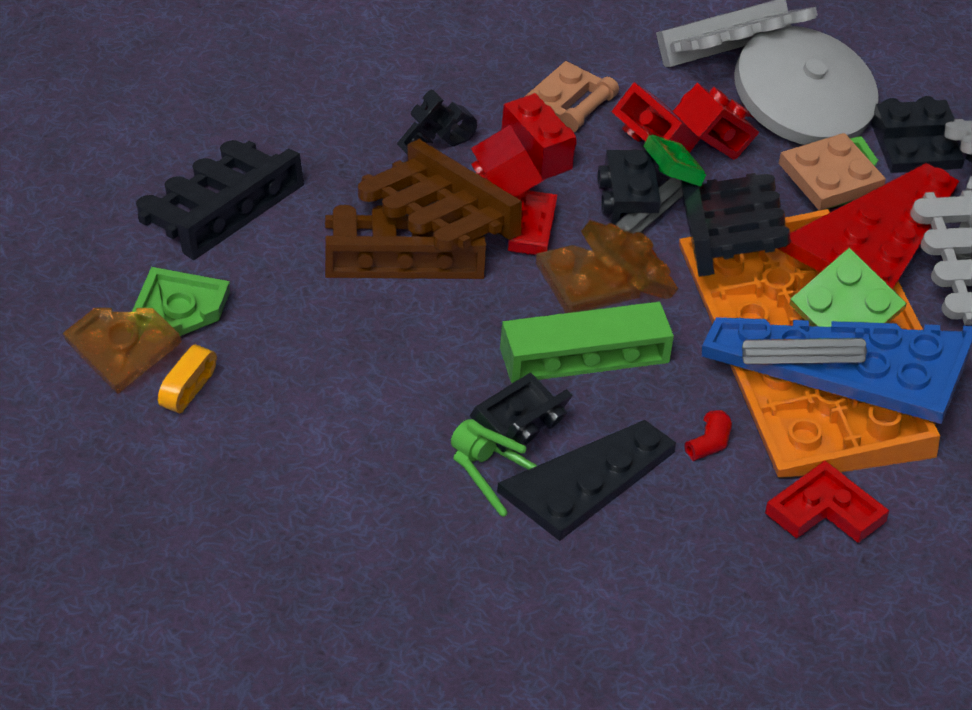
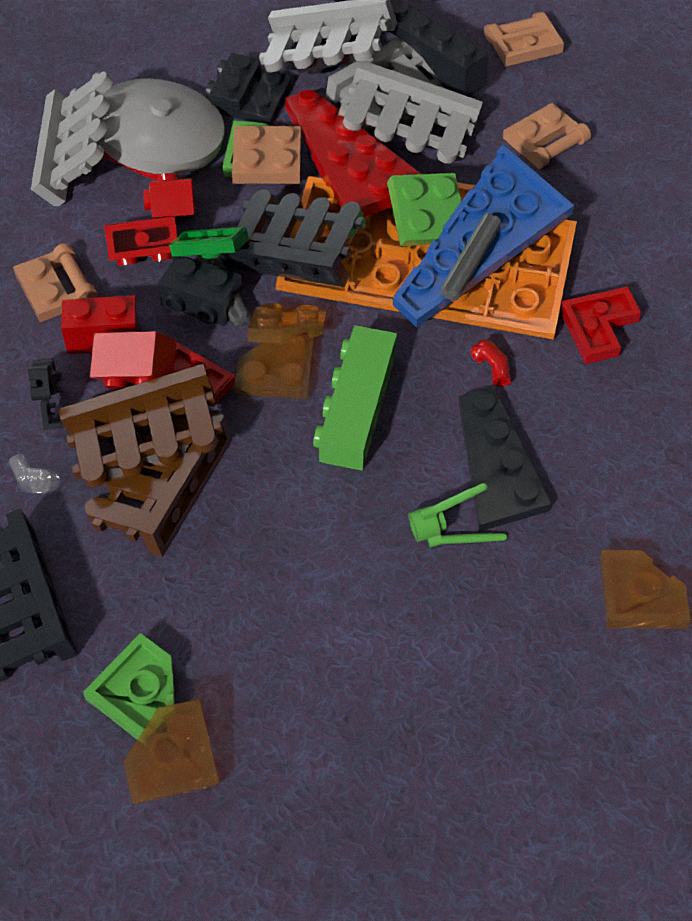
camera: 60 degrees left, 10 degrees up
(187, 378) = (241, 716): light orange beam -> none
(347, 159) = (32, 479): none -> clear arm
(498, 634) = (641, 594): none -> clear orange plate
(521, 410) = (416, 473): black bracket -> none

